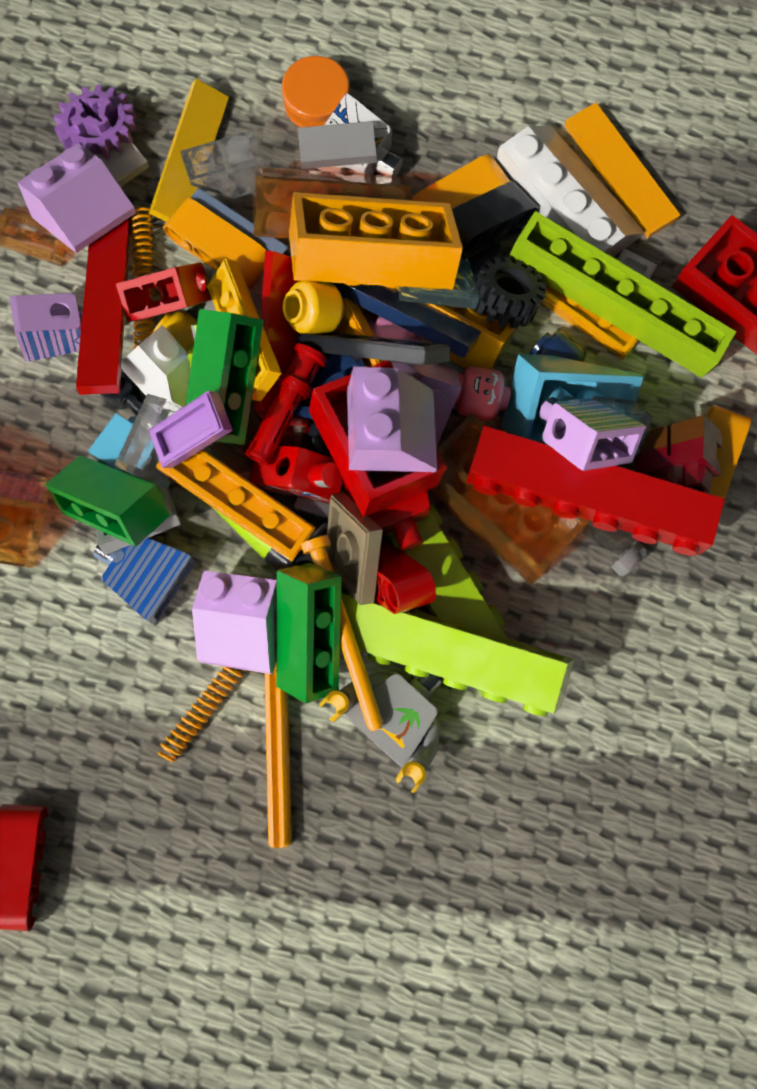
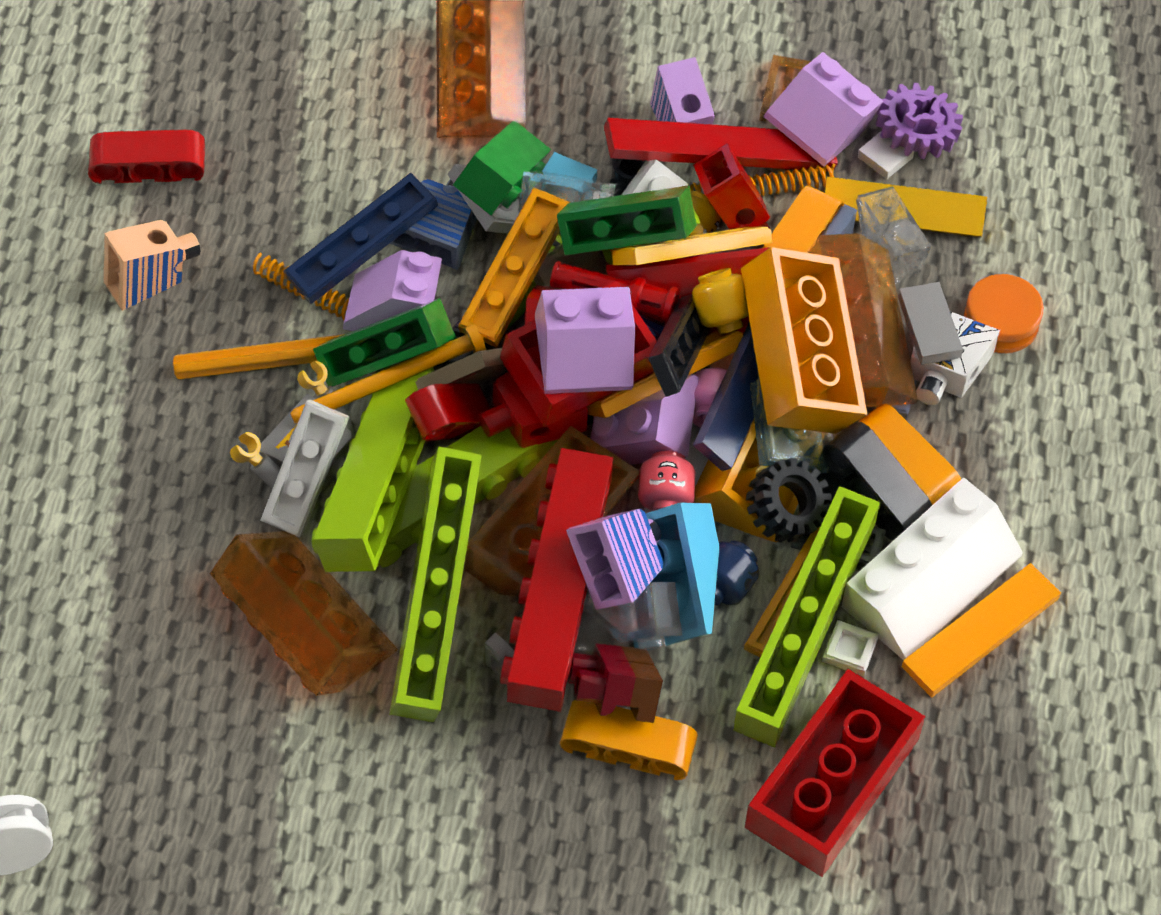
camera: 85 degrees right, 20 degrees down
(166, 648) = (360, 238): none -> dark blue tile
(167, 883) = (145, 261): none -> light nougat torso
(190, 429) = (565, 196): tile -> none
(434, 719) = (304, 468): none -> white tile
(555, 753) = (301, 610): none -> clear orange slope
(573, 606) = (435, 585): none -> lime brick

